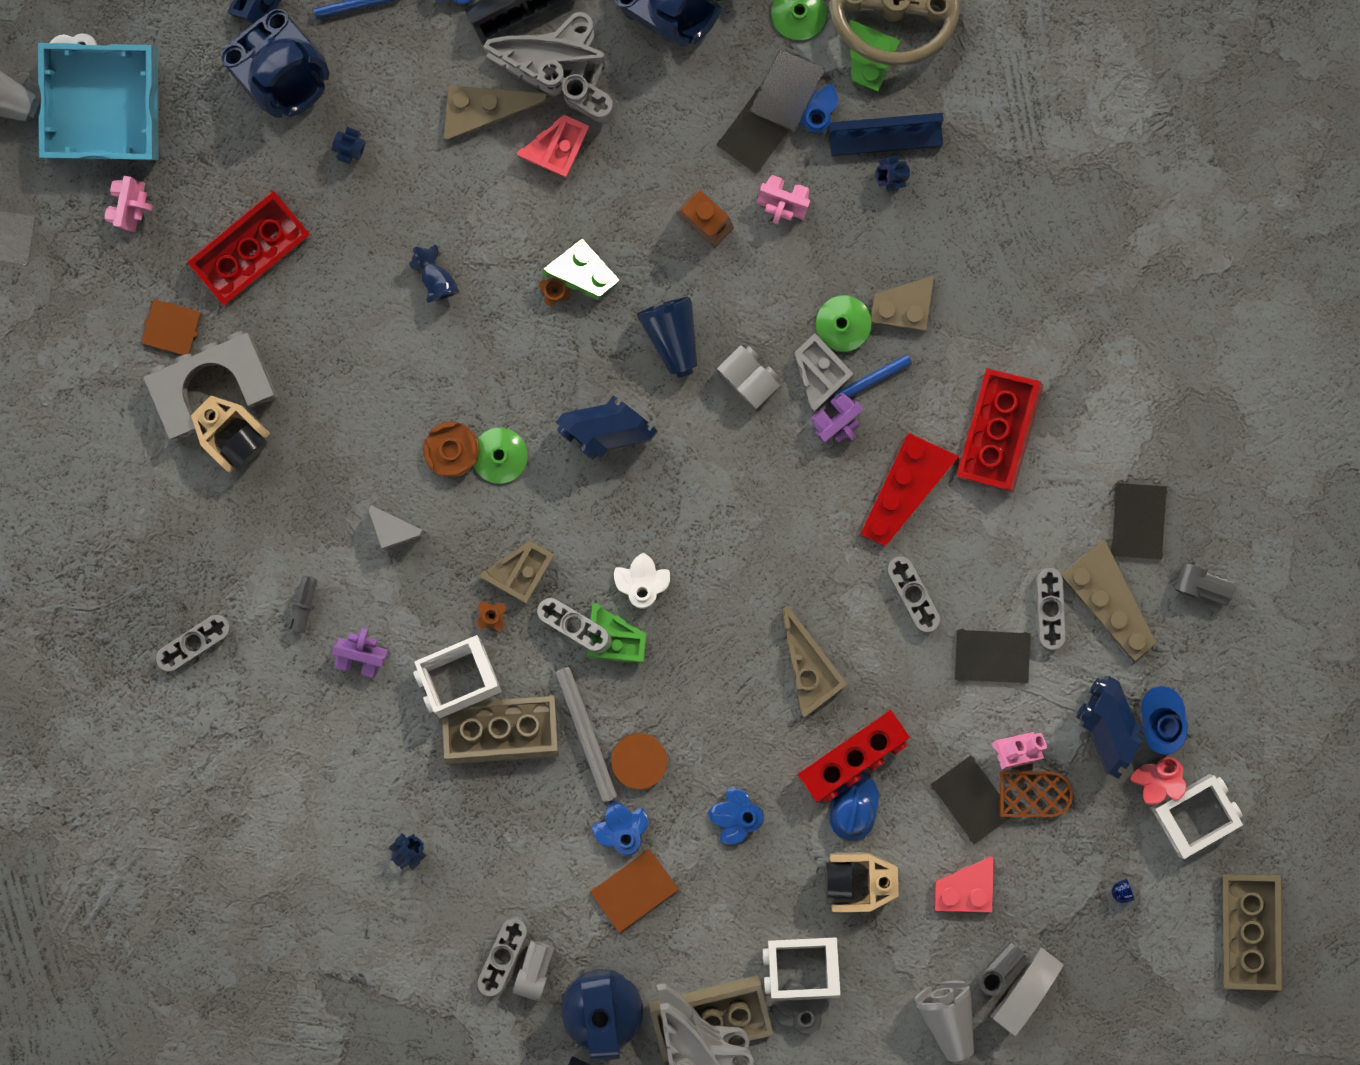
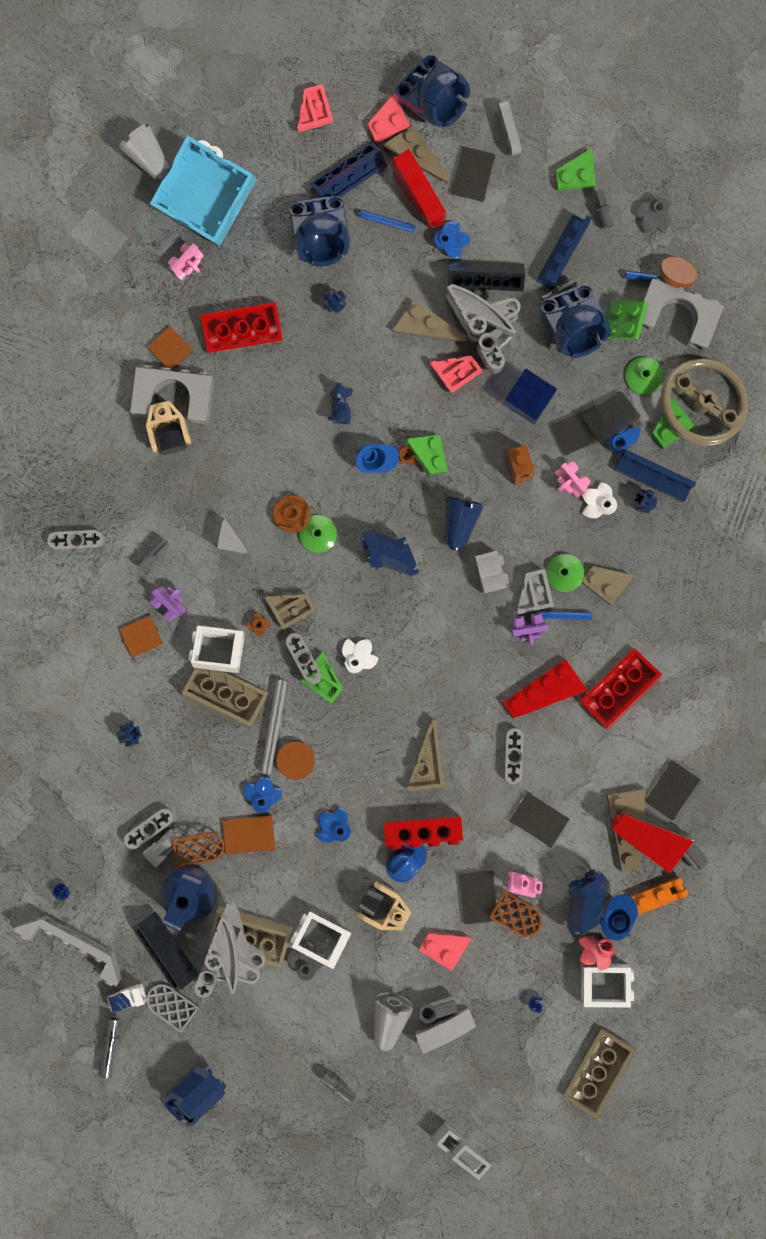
camera: 30 degrees right, 0 degrees up
(349, 718) = (141, 636): none -> dark orange piece
(518, 315) = (376, 458): none -> blue piece
(580, 969) = (189, 850): none -> dark orange window
(668, 124) = (529, 396): none -> clear blue brick
(830, 207) = (596, 501): none -> white plate
(1058, 586) = (601, 801): light grey beam -> none
(1152, 598) = (653, 841): none -> red slope
(1199, 663) = (659, 895): none -> orange plate

